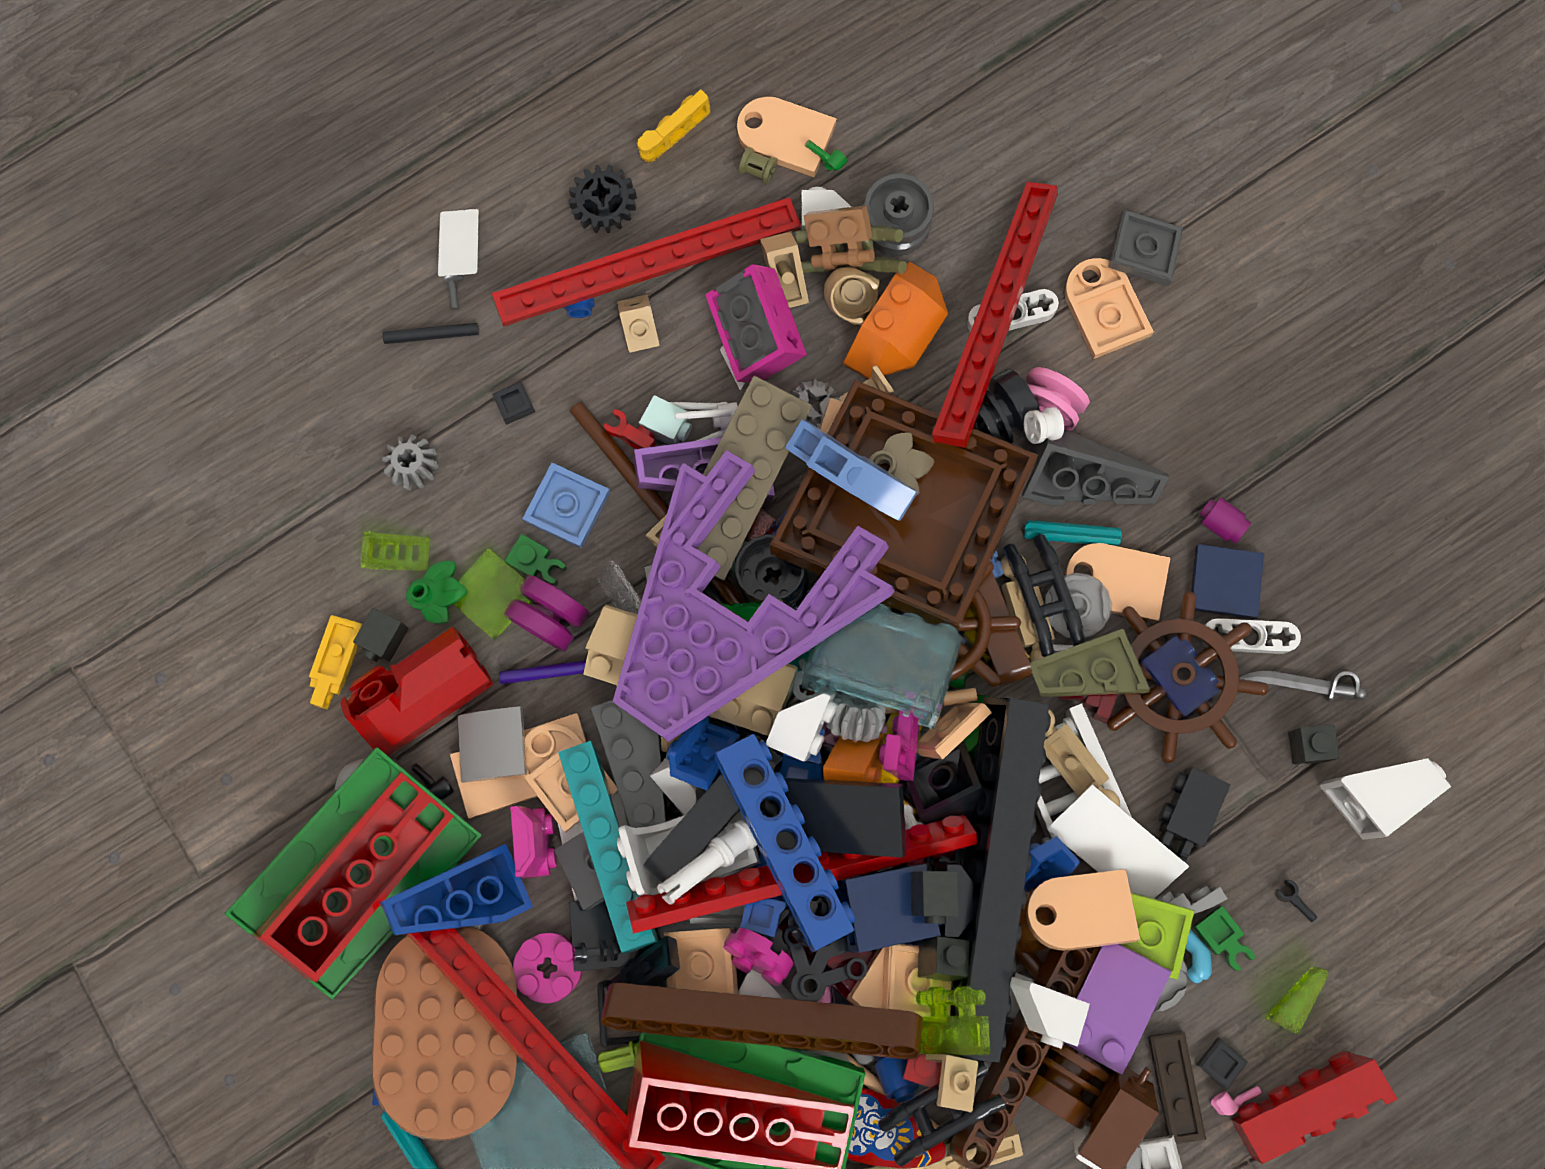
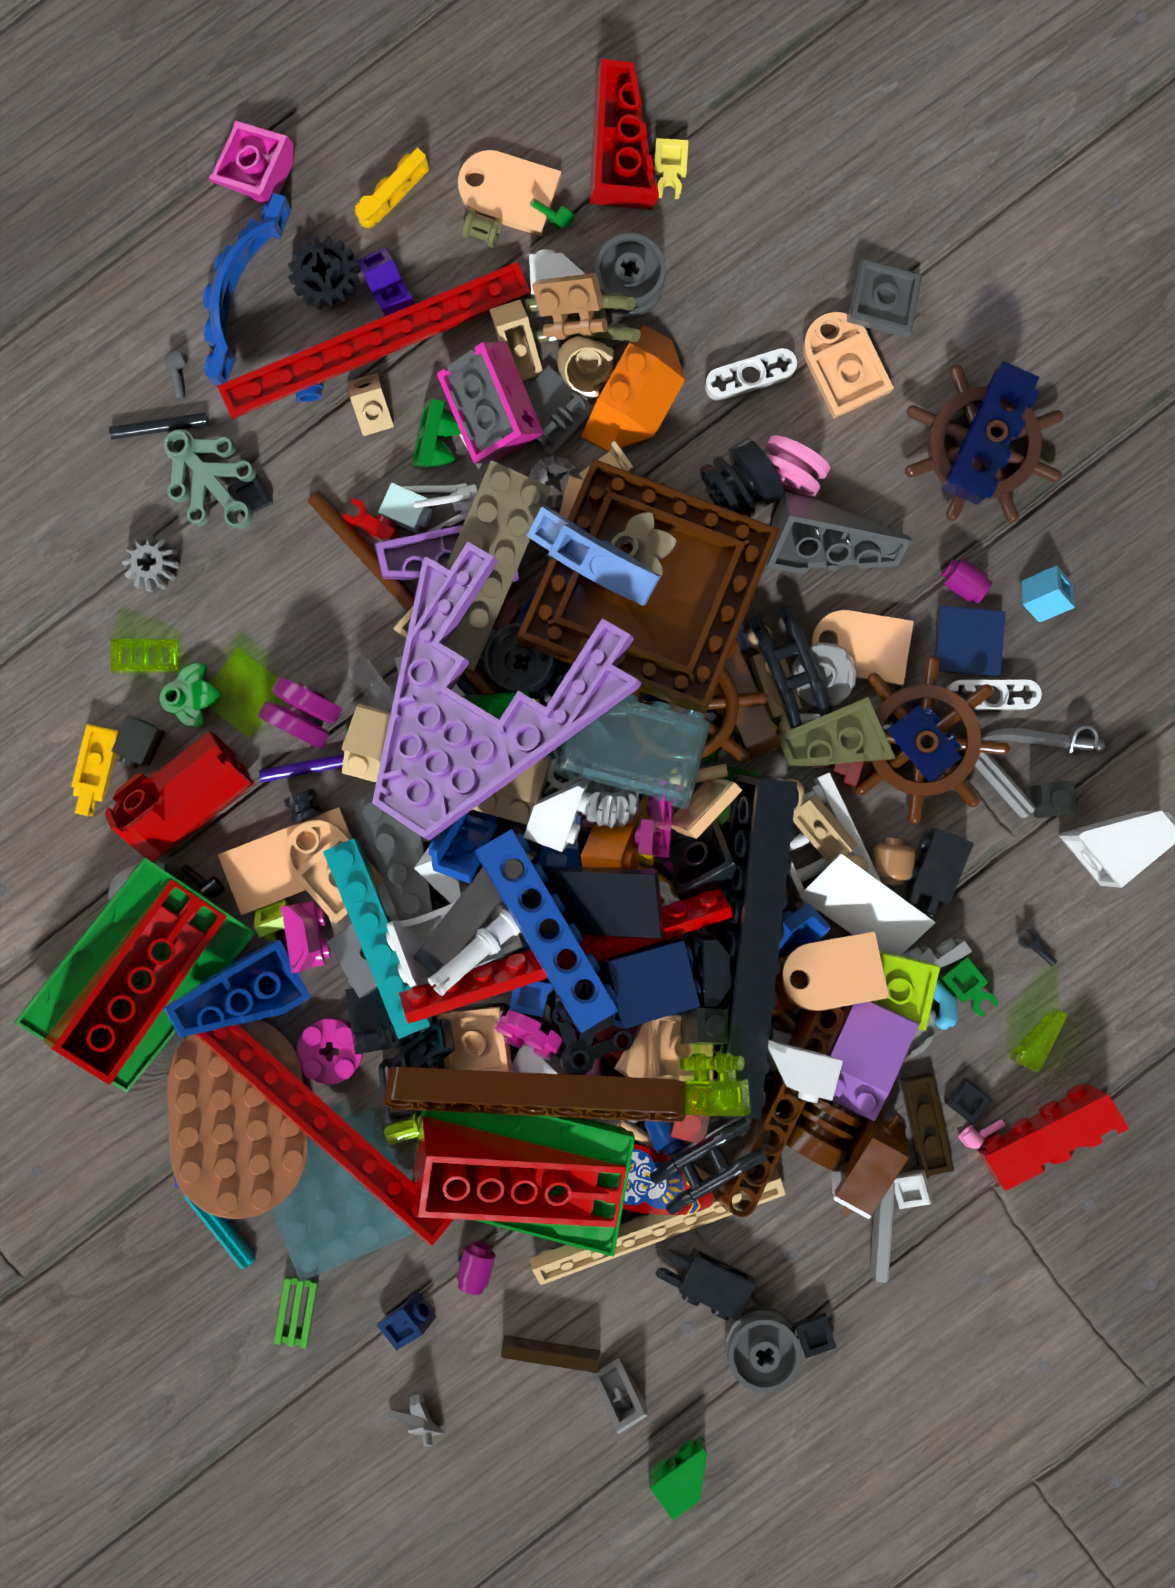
camera: 10 degrees left, 10 degrees up
(458, 242) = (178, 327): white sticker -> none
(471, 381) = (205, 476): none -> sand green plant
(492, 744) = (258, 843): light grey slope -> none
(496, 825) = (270, 919): none -> lime tile
(510, 195) = (228, 271): none -> blue piece
(531, 559) = (281, 655): green plate -> none
(540, 709) = (303, 806): none -> black wheel
(545, 97) = (254, 162): none -> dark pink slope
(566, 505) = (311, 599): medium blue plate -> none
(660, 210) = (385, 282): none -> dark purple slope
(699, 342) = (434, 422): none -> green tile
(822, 335) = (557, 409): none -> dark grey hinge
(894, 98) = (620, 149): none -> red wedge
(934, 895) = (693, 971): pearl dark grey brick -> none
(942, 116) = (670, 163): none -> light yellow plate
(956, 1081) = (720, 1140): tan bracket -> none
(995, 315) = (733, 380): red plate -> none
(1043, 425) = (784, 497): white wheel -> none
(1073, 532) = (817, 600): teal axle -> none
(1146, 799) = (893, 861): none -> medium nougat head
(1258, 364) = (1001, 417): none -> brick
(1262, 728) = (1004, 785): none -> light grey axle
(1307, 538) = (1048, 594): none -> medium azure panel

